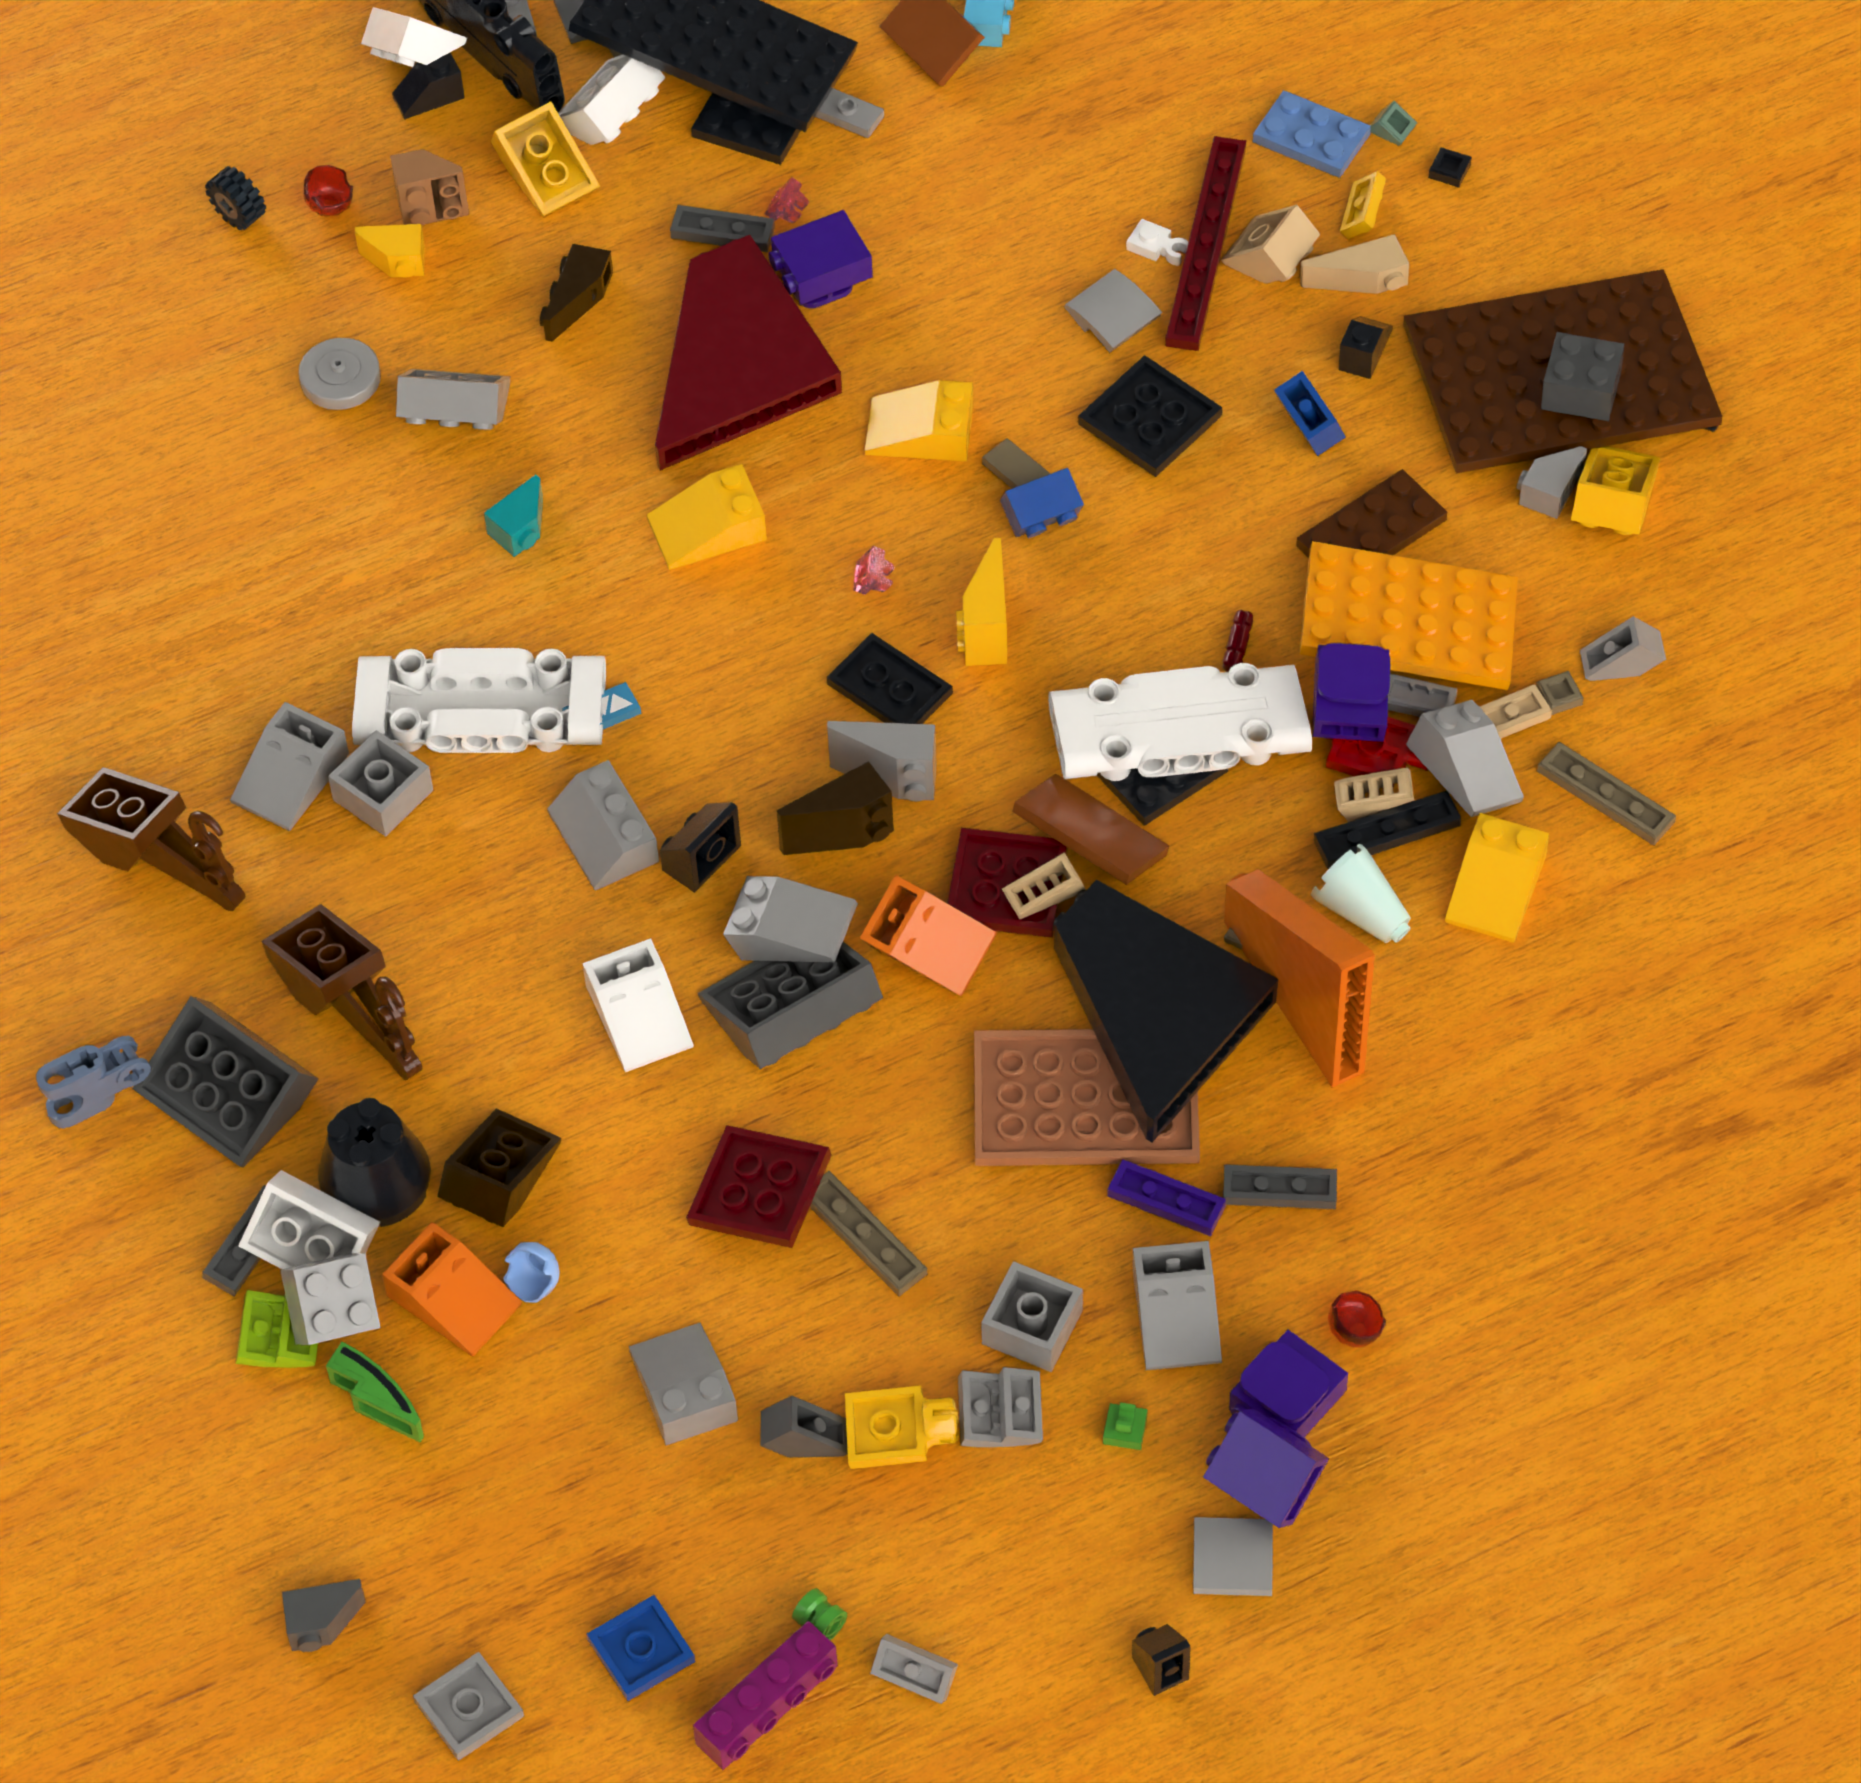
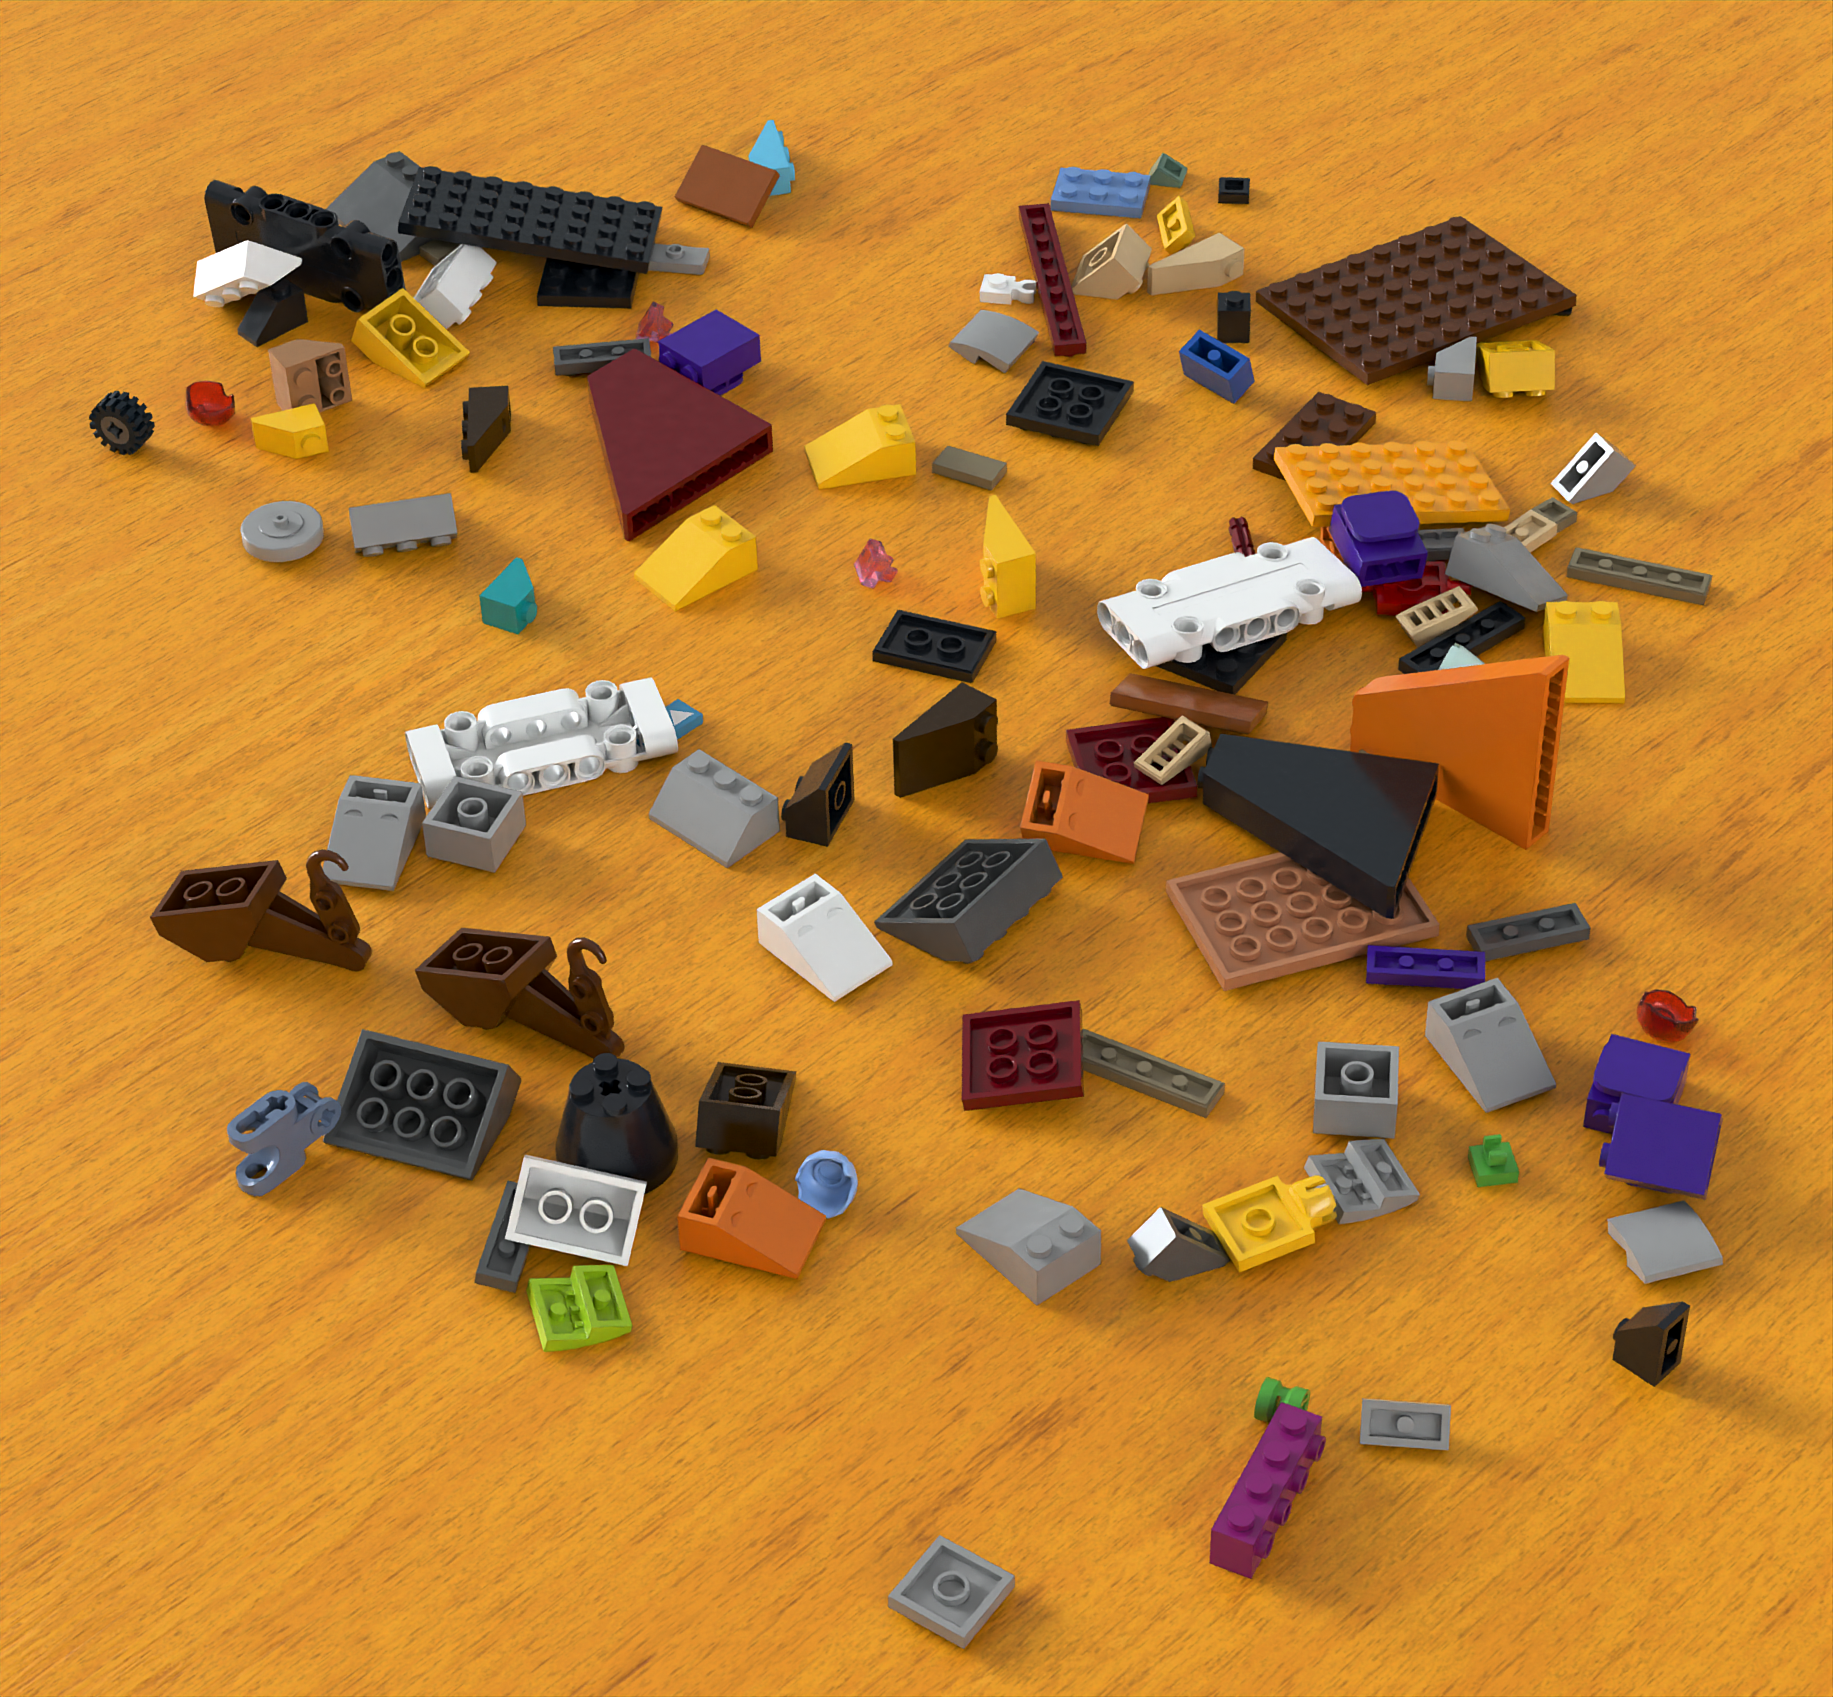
camera: 20 degrees left, 15 degrees down
(320, 1613) = (745, 1549): dark grey slope -> none
(330, 1298) = (630, 1252): light grey brick -> none
(373, 1391) = (712, 1333): bright green slope -> none
(641, 1647) = (1109, 1486): blue plate -> none
(788, 921) = (941, 834): light grey slope -> none
(897, 751) = (988, 668): light grey slope -> none
(1042, 503) = (1009, 477): blue brick -> none
(1582, 376) = (1446, 284): dark grey brick -> none

